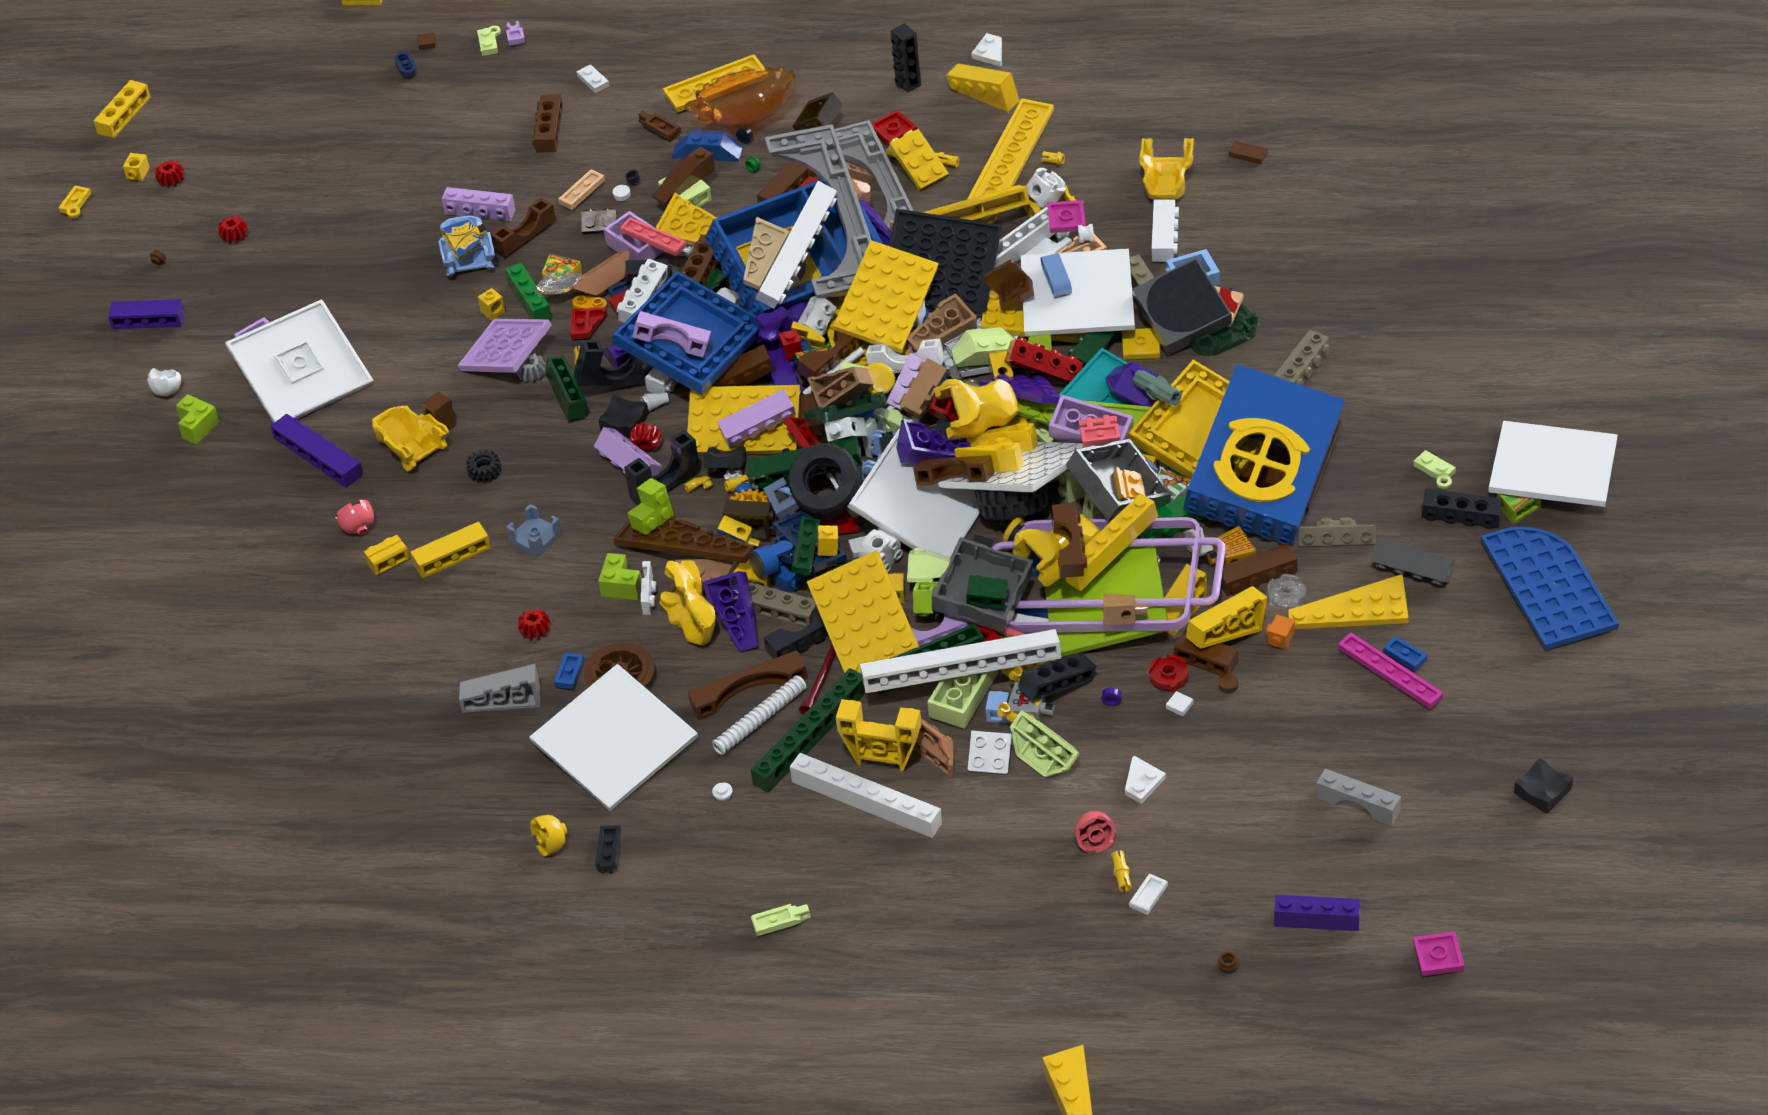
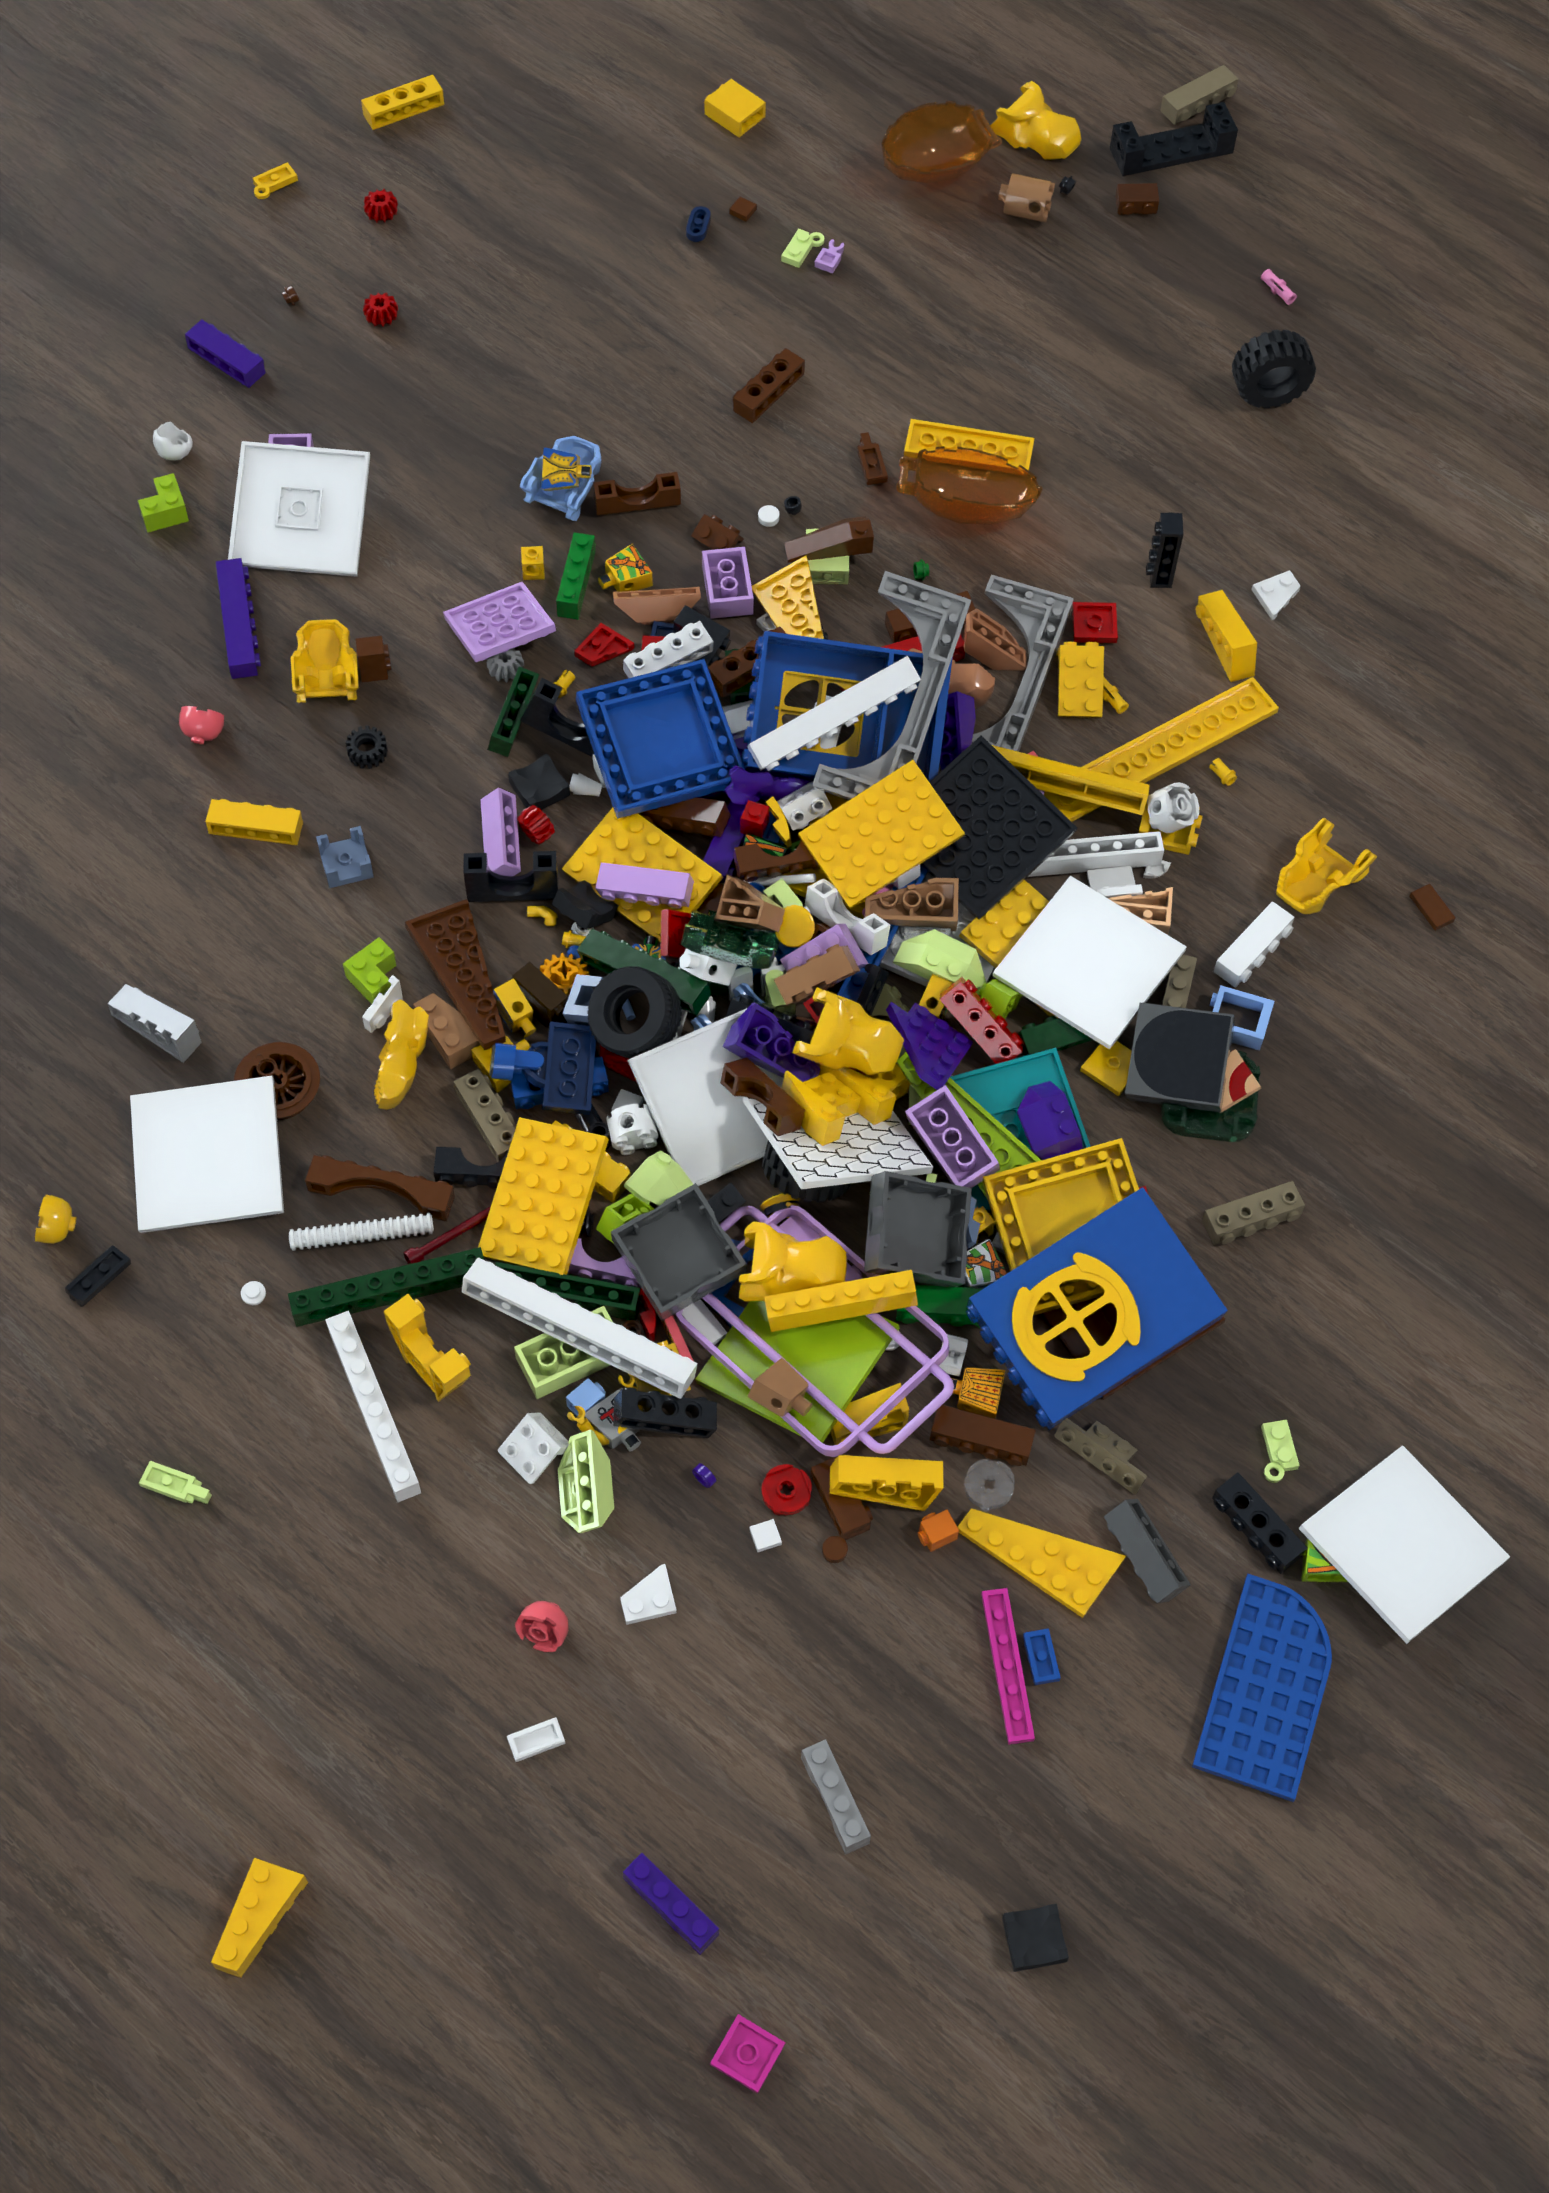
camera: 30 degrees right, 15 degrees up
(136, 166) = (358, 178): yellow brick -> none
(386, 555) = (194, 784): yellow brick -> none
(478, 204) = (621, 436): lavender brick -> none
(534, 624) = (253, 965): red gear -> none
(557, 284) = (603, 584): clear slope -> none
(569, 670) = (238, 1043): blue plate -> none
(581, 189) = (733, 486): light nougat plate -> none
(585, 301) = (625, 626): light orange plate -> none
(592, 78) = (858, 360): white plate -> none
(652, 327) = (615, 711): lavender arch -> none
(653, 236) = (738, 594): coral tile -> none
(654, 507) = (457, 919): lime brick -> none
(717, 142) = (898, 518): blue wedge -> none
(734, 607) = (440, 1086): dark purple wedge -> none
(744, 135) = (942, 529): black tile -> none
(763, 251) = (795, 697): tan wing -> none
(805, 546) = (554, 1074): dark green tile -> none
(818, 114) = (1027, 557): dark brown window -> none
(827, 540) = (577, 1085): yellow brick -> none
(935, 748) = (485, 1394): nougat wedge -> none
(987, 592) = (673, 1265): dark green brick -> none
(1010, 284) = (1024, 909): reddish brown bracket -> none
(1056, 275) = (1079, 928): medium blue beam -> none
(1065, 216) = (1158, 860): dark pink plate -> none
(1065, 522) = (770, 1298): reddish brown arch -> none
(1086, 233) = (1158, 896): white wheel -> none
(1099, 430) = (944, 1163): coral plate -> none
(1121, 871) = (531, 1692): yellow pin -> none
(1128, 484) = (927, 1243): light orange plate -> none
(1157, 387) = (1052, 1147): sand green piece -> none
(1228, 957) = (534, 1879): reddish brown plate -> none

